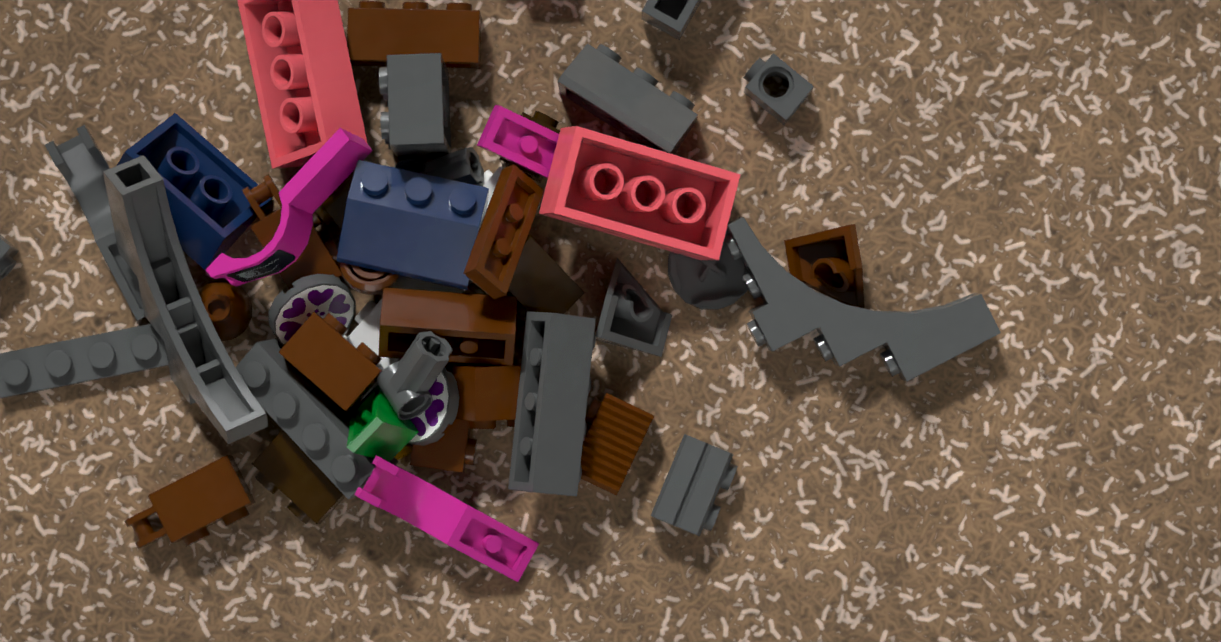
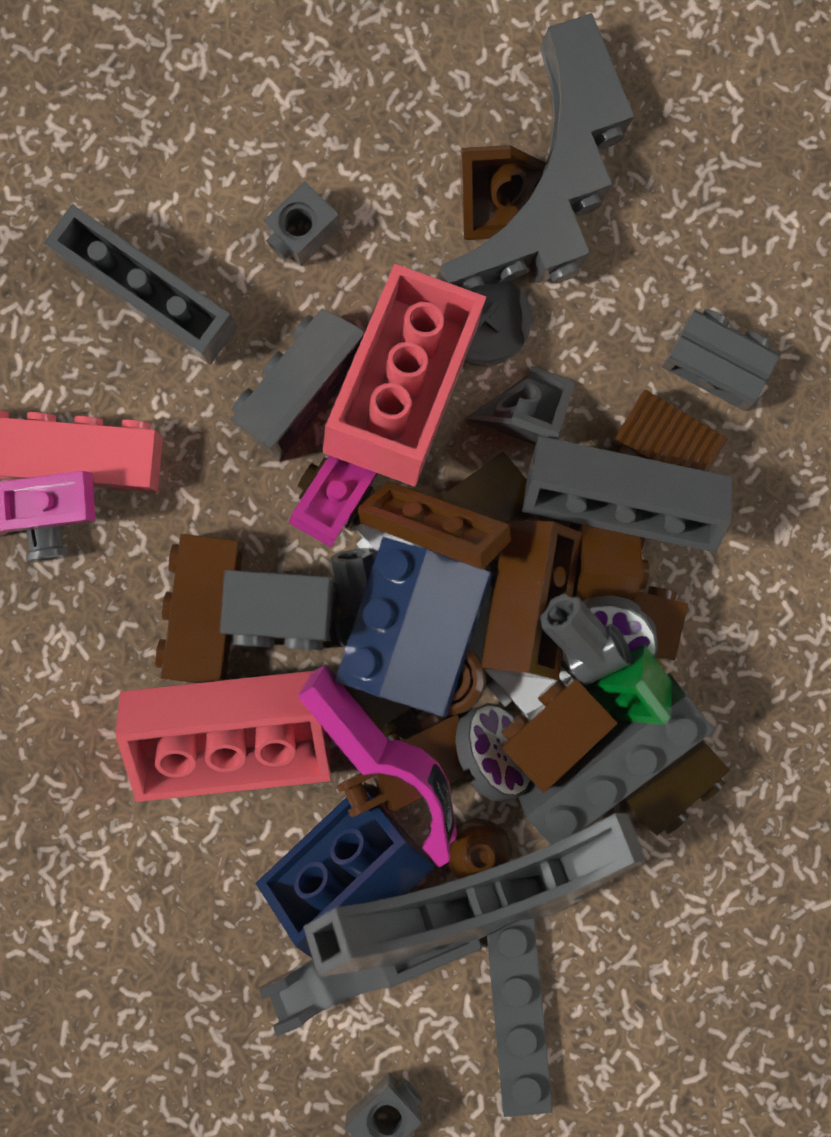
camera: 85 degrees left, 0 degrees up
(194, 504) = (692, 903): reddish brown brick -> none
(447, 519) = (738, 624): dark pink piece -> none

